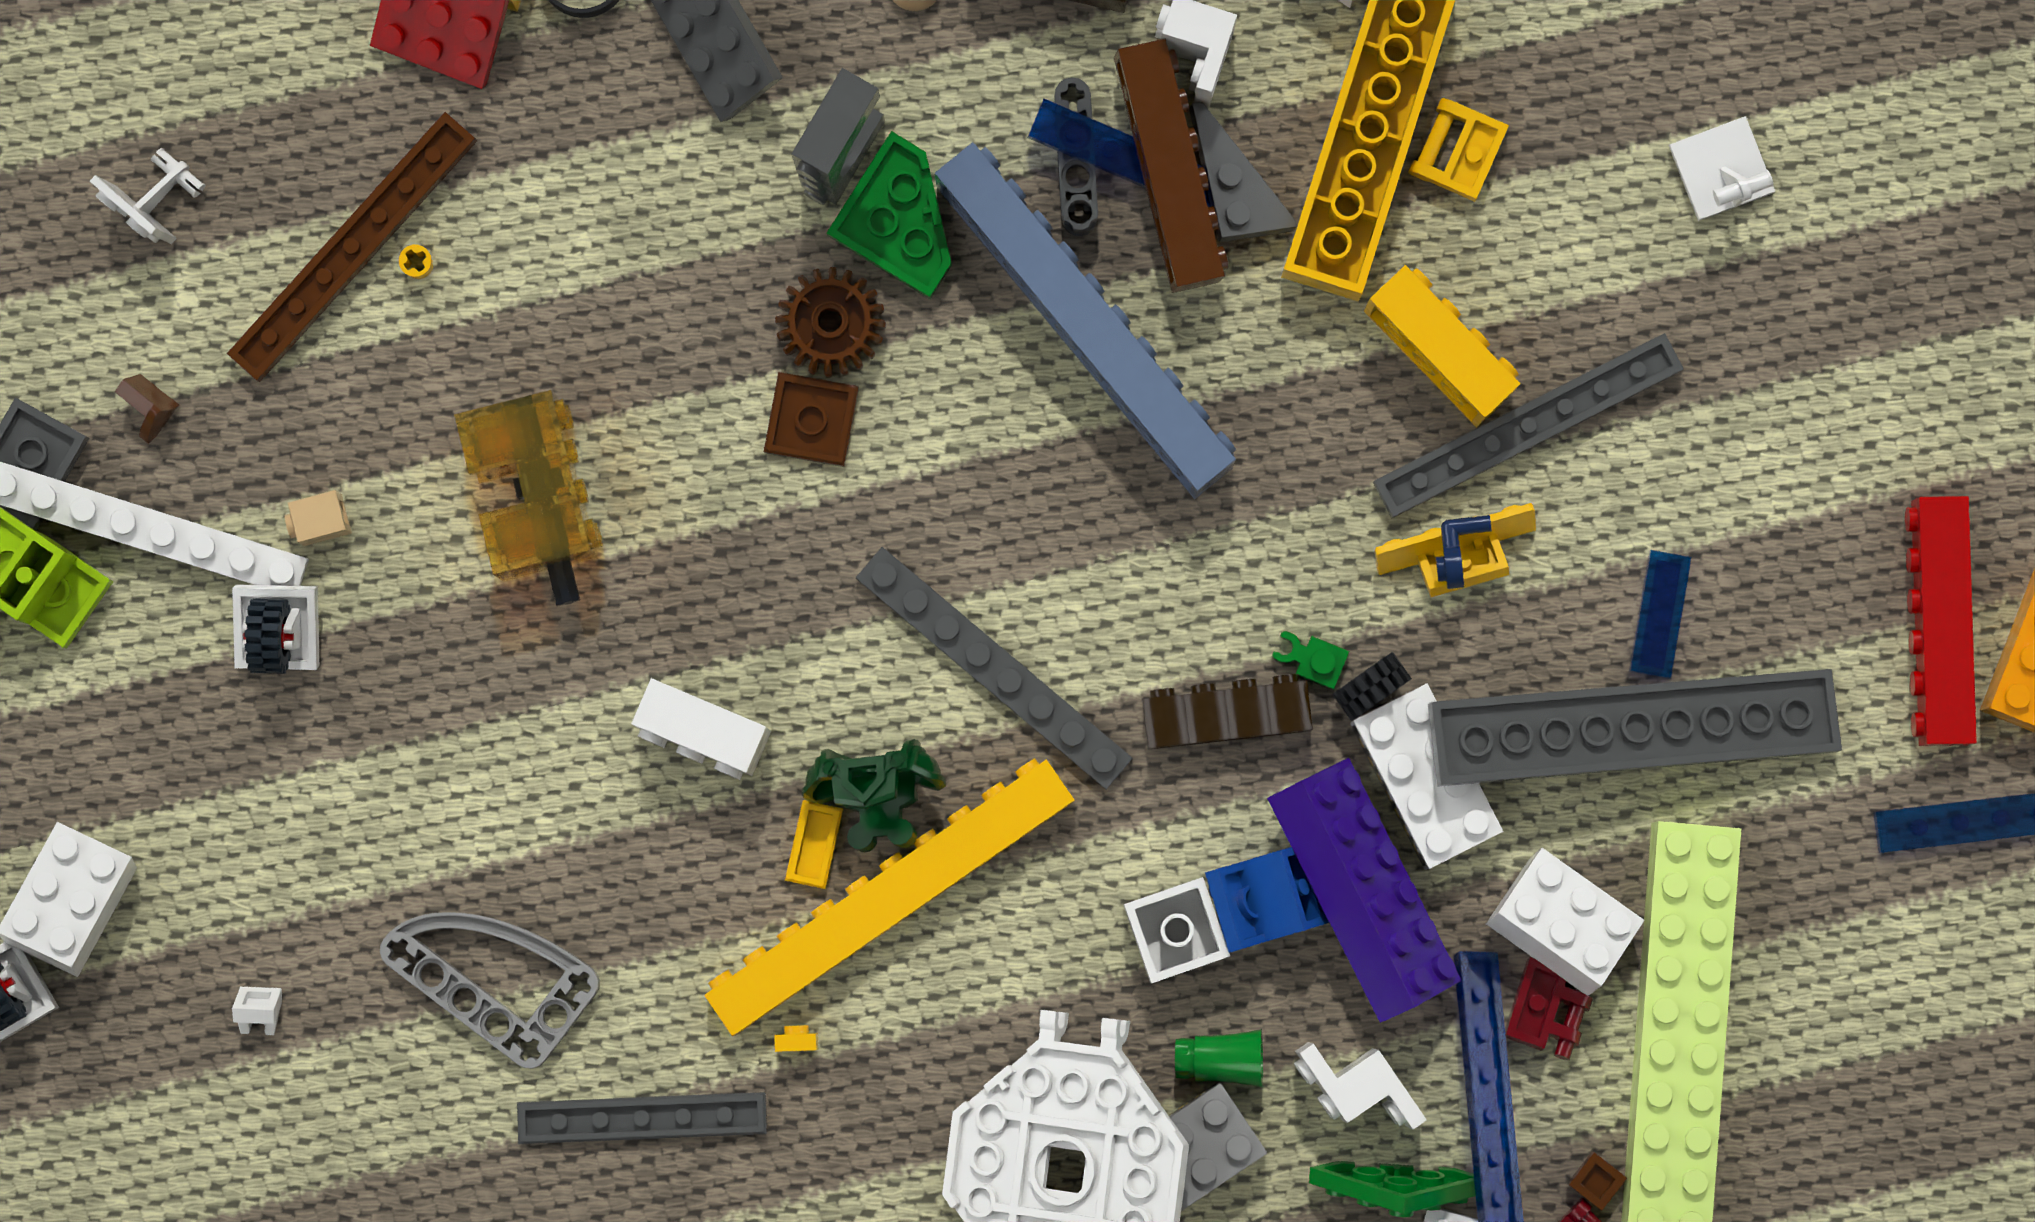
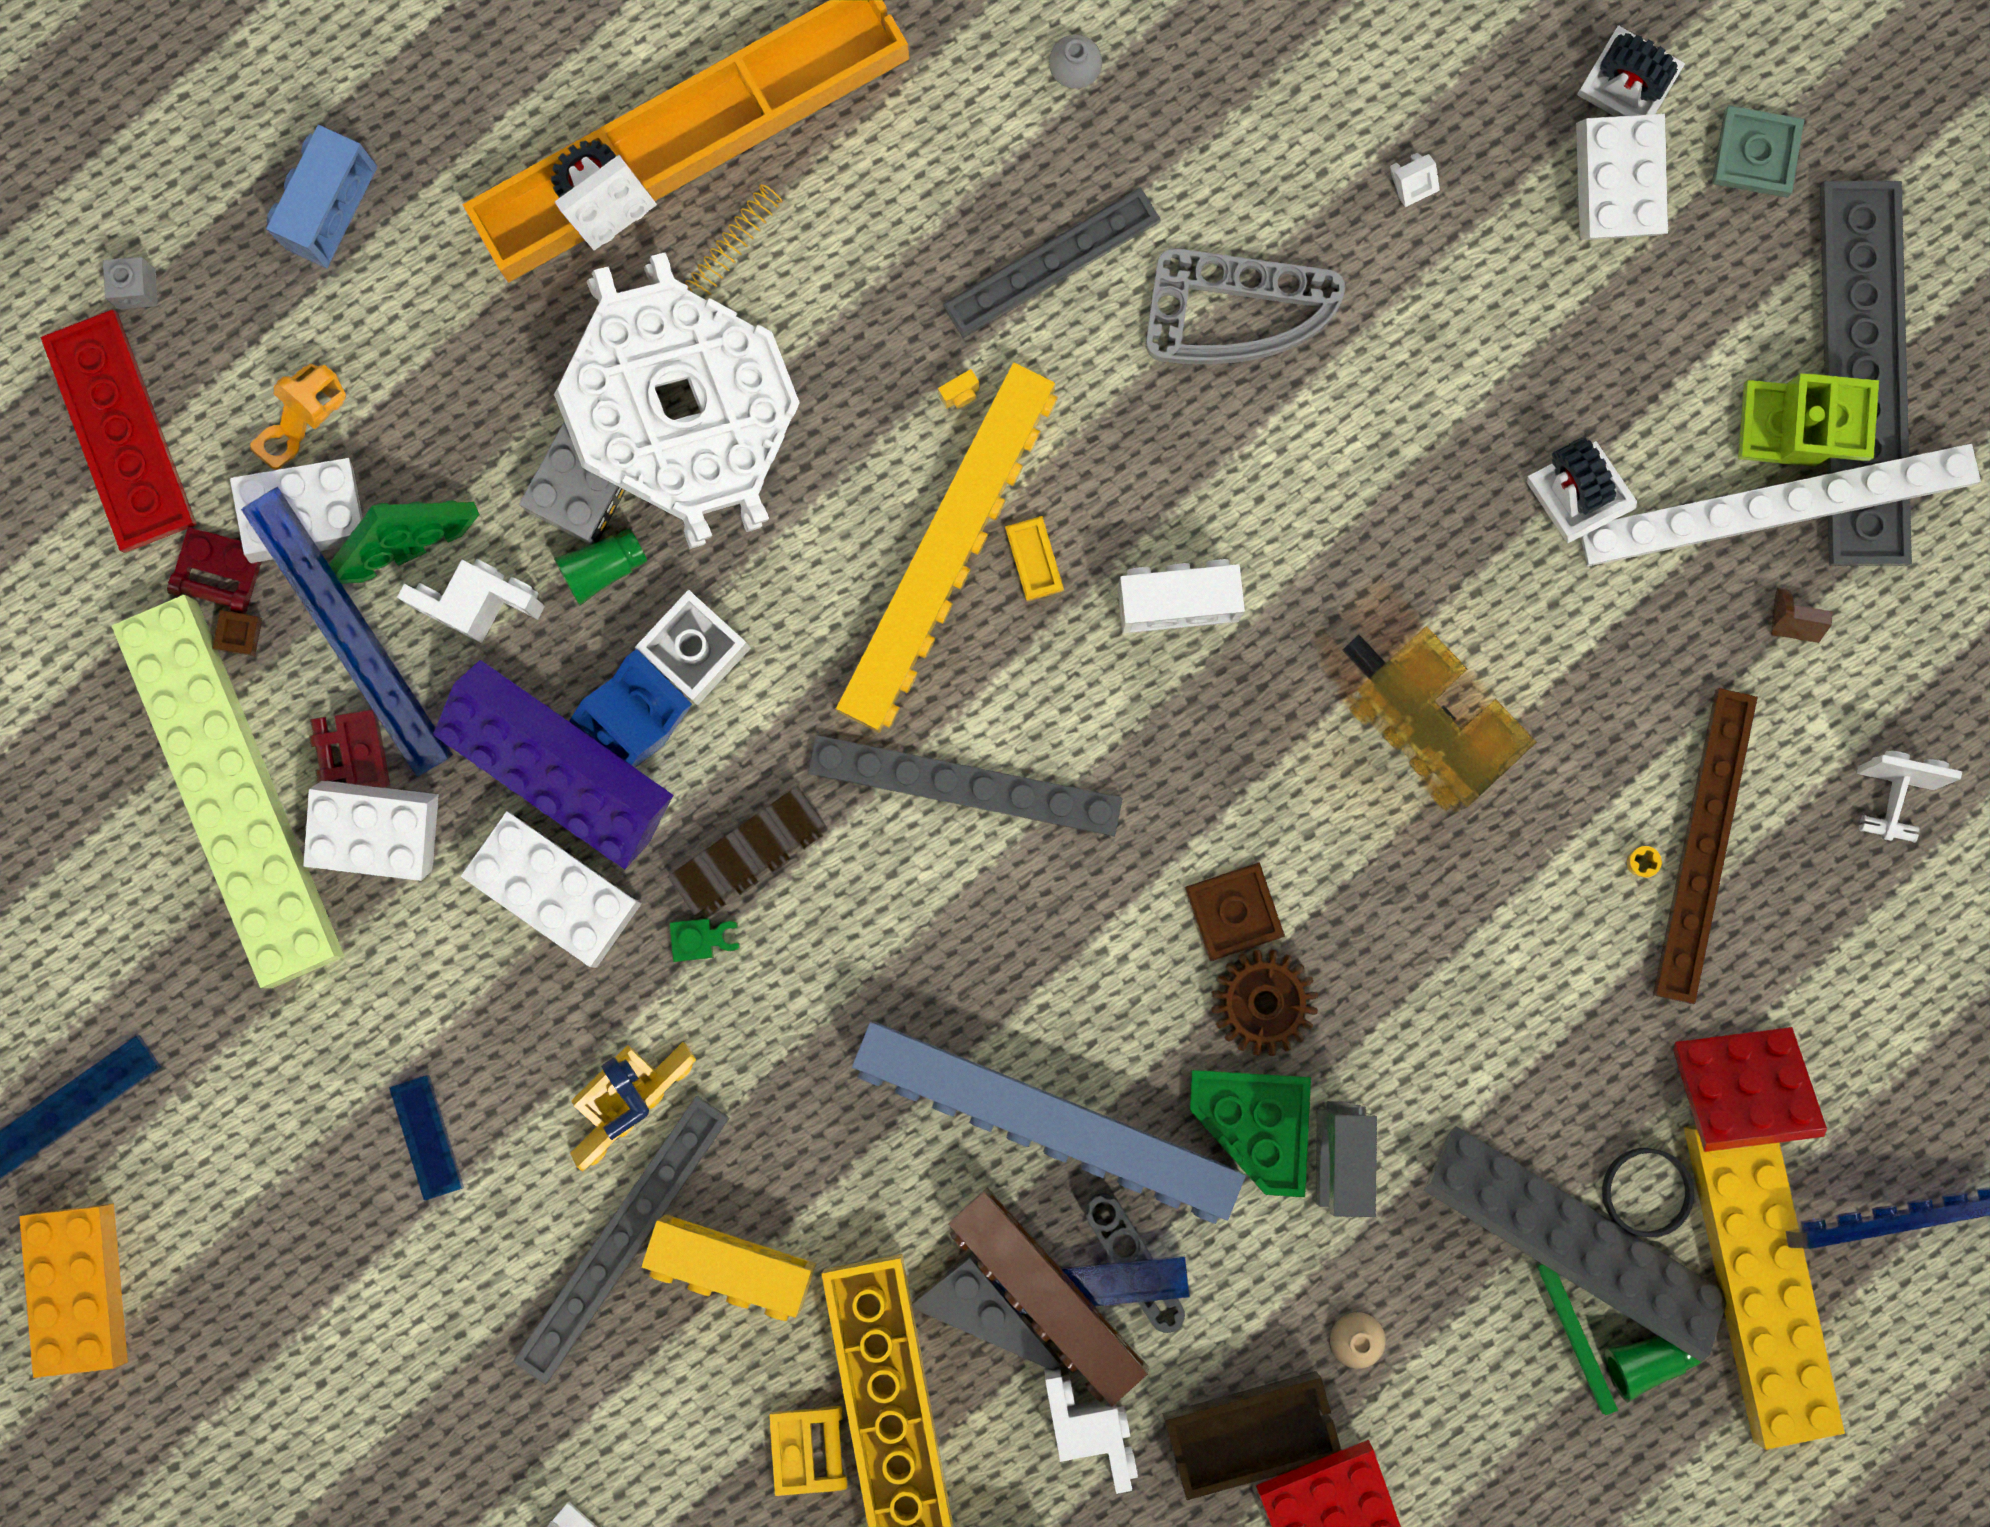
camera: 150 degrees right, 0 degrees up
(317, 518) = (1599, 601): tan brick -> none
(876, 789) = (1007, 627): dark green piece -> none
(1372, 686) = (636, 940): black tyre -> none
(1634, 727) = (394, 1025): dark grey plate -> none
(1942, 621) = (180, 1261): red brick -> none

